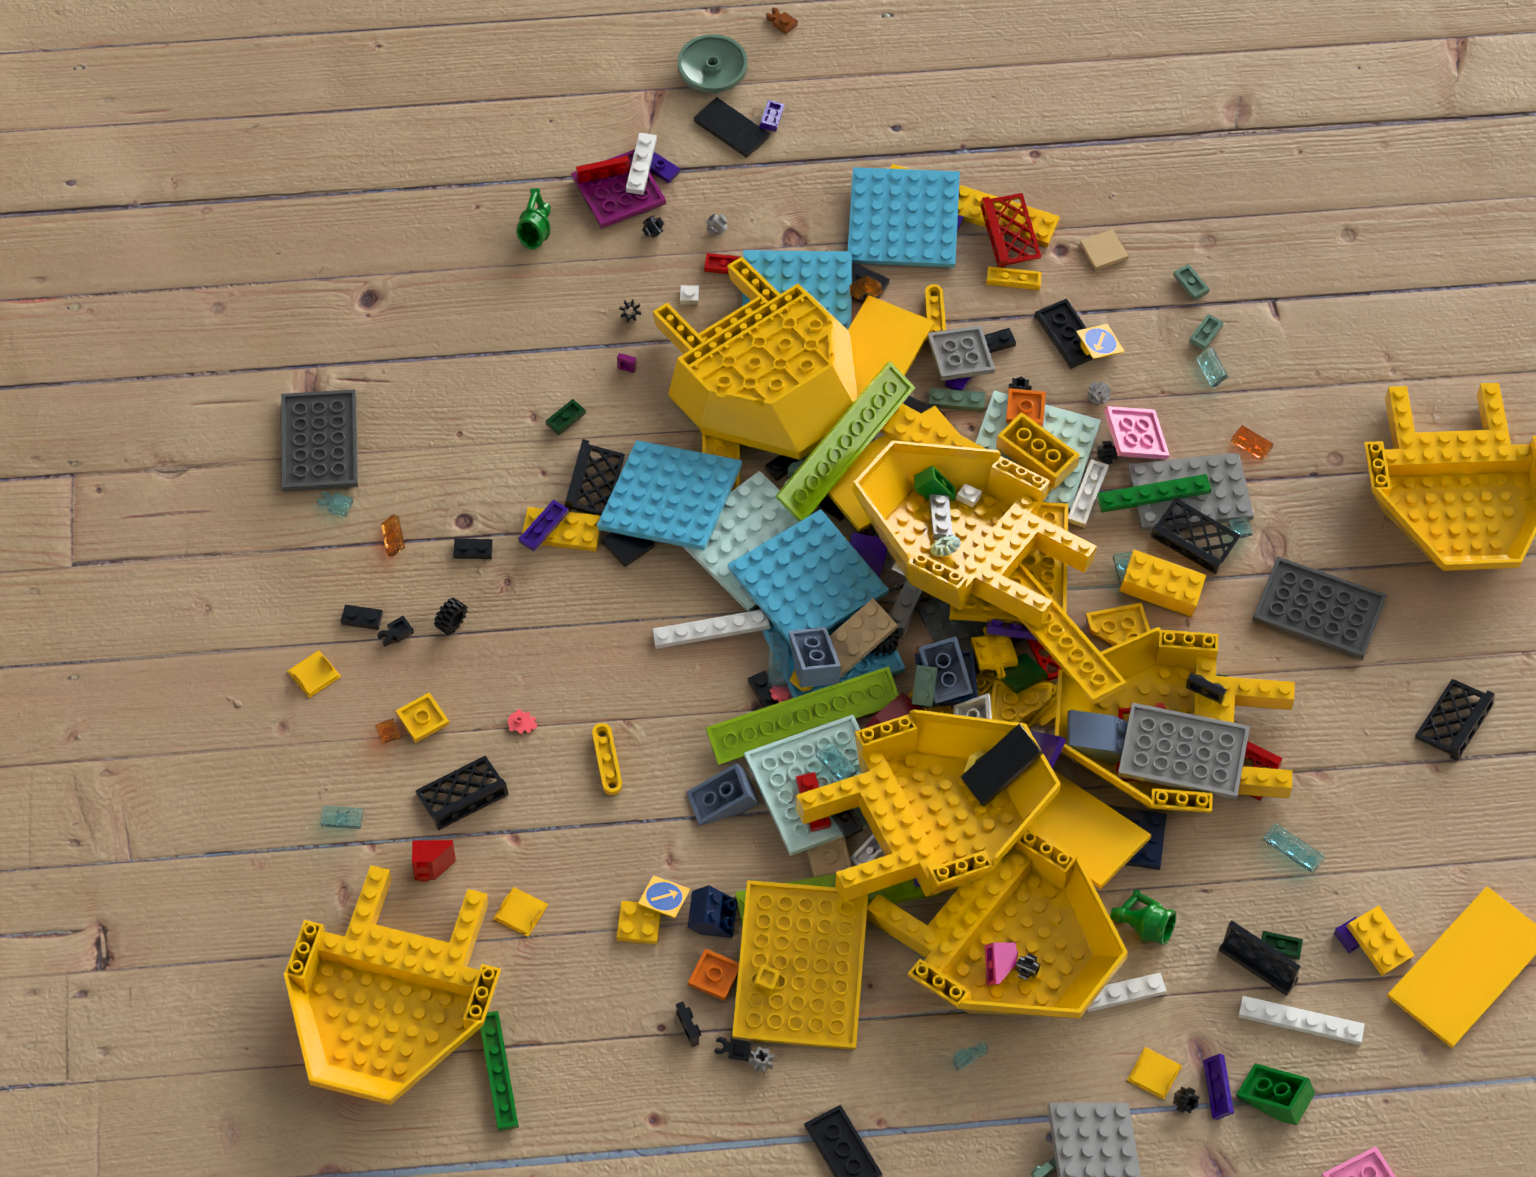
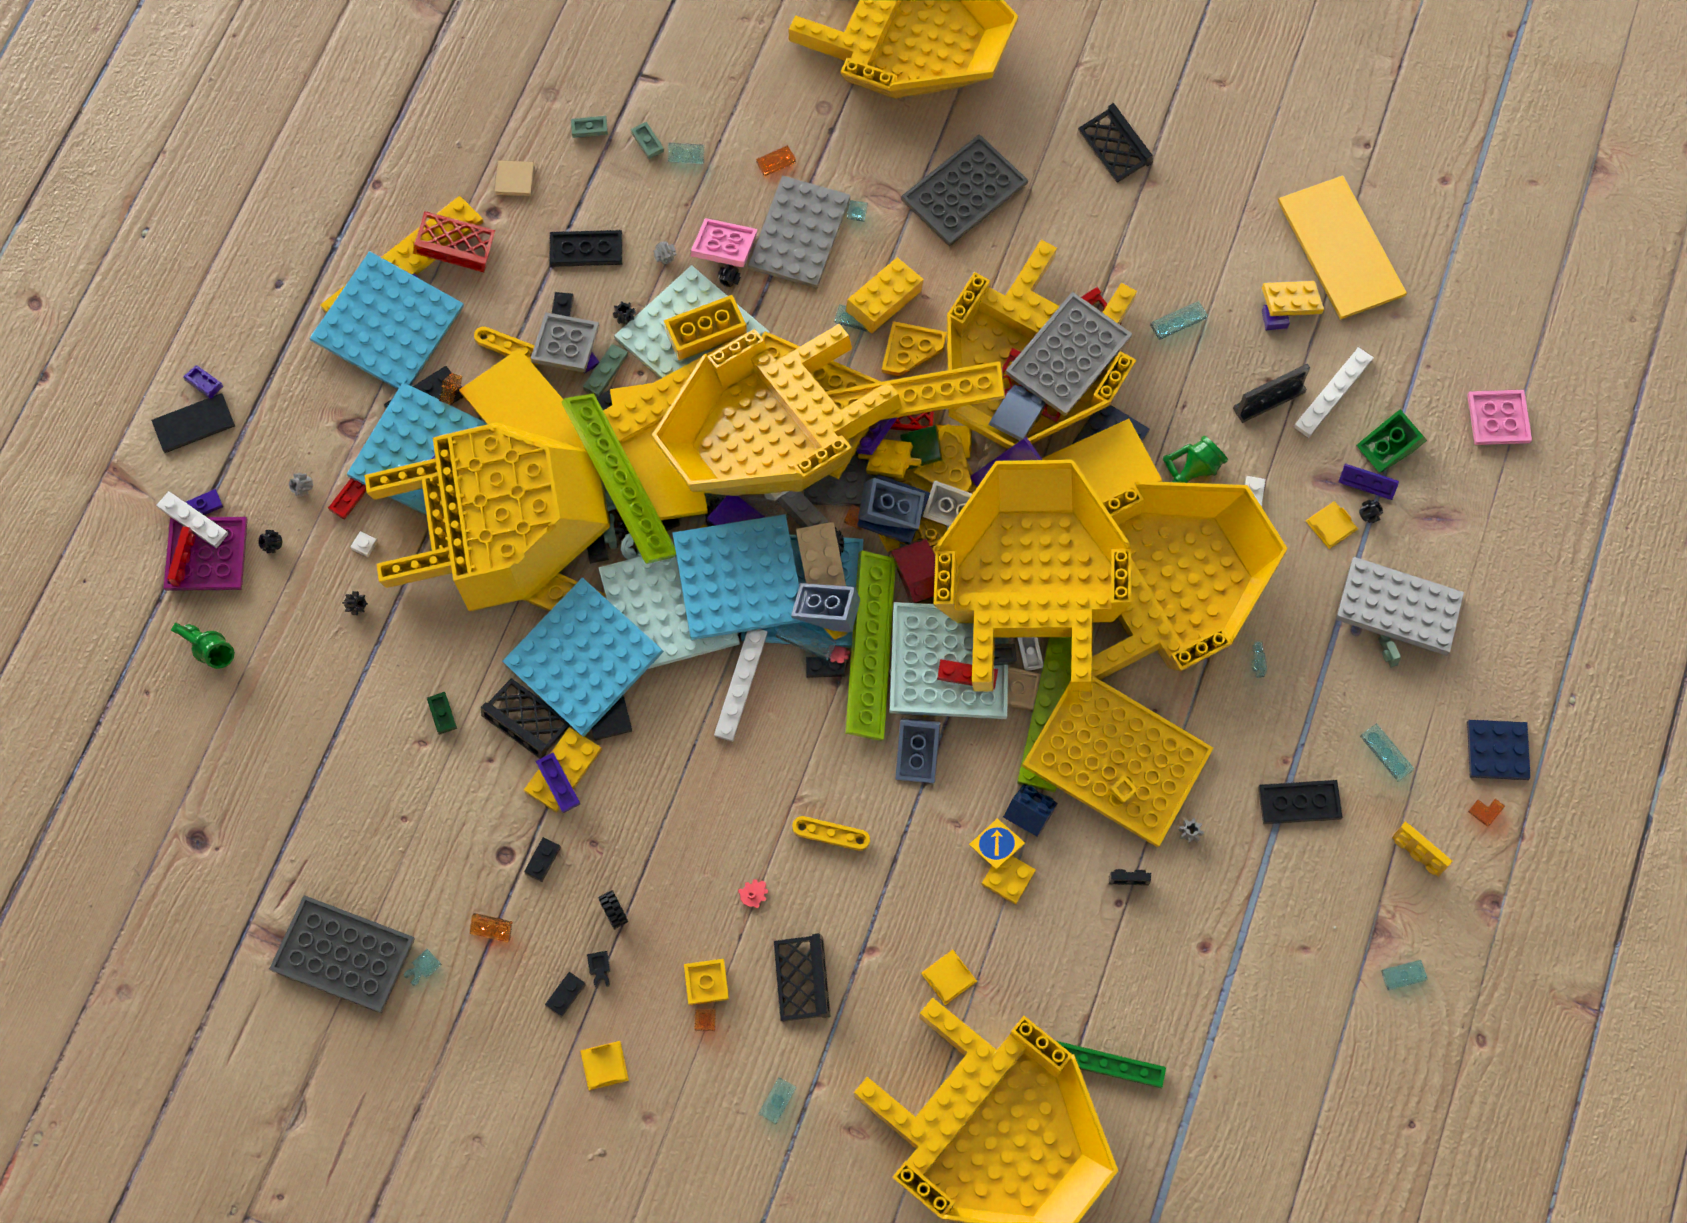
camera: 65 degrees left, 10 degrees up
(431, 858) = (867, 1036): red slope -> none
(626, 363) = (412, 632): magenta tile -> none
(712, 63) = (112, 405): sand green dish -> none
(714, 974) = (1091, 834): orange plate -> none
(738, 1048) = (1171, 848): black plate -> none
(783, 21) = (97, 323): dark orange plate -> none
(836, 762) = (940, 637): clear light blue plate -> none
(924, 685) = (901, 528): sand green plate -> none
(934, 483) = (704, 426): green slope -> none
(940, 516) = (741, 435): light grey plate -> none
(945, 546) = (782, 449): light aqua gear -> none
(968, 495) = (724, 403): white plate -> none
(973, 759) = (998, 522): light yellow tile -> none
(999, 961) = (1192, 594): dark pink slope -> none
(1001, 765) = (1021, 500): black tile -> none
(1013, 278) = (502, 264): yellow tile -> none
(1027, 966) = (1207, 573): black gear -> none
(1028, 402) = (650, 316): orange plate -> none
(1087, 493) = (760, 310): white plate -> none
(1099, 341) = (613, 227): piece -> none
(1153, 493) = (791, 259): green plate -> none
(1184, 546) = (859, 258): black fence -> none
(1206, 688) = (1025, 302): black plate -> none
(1285, 944) = (1262, 372): dark green plate -> none

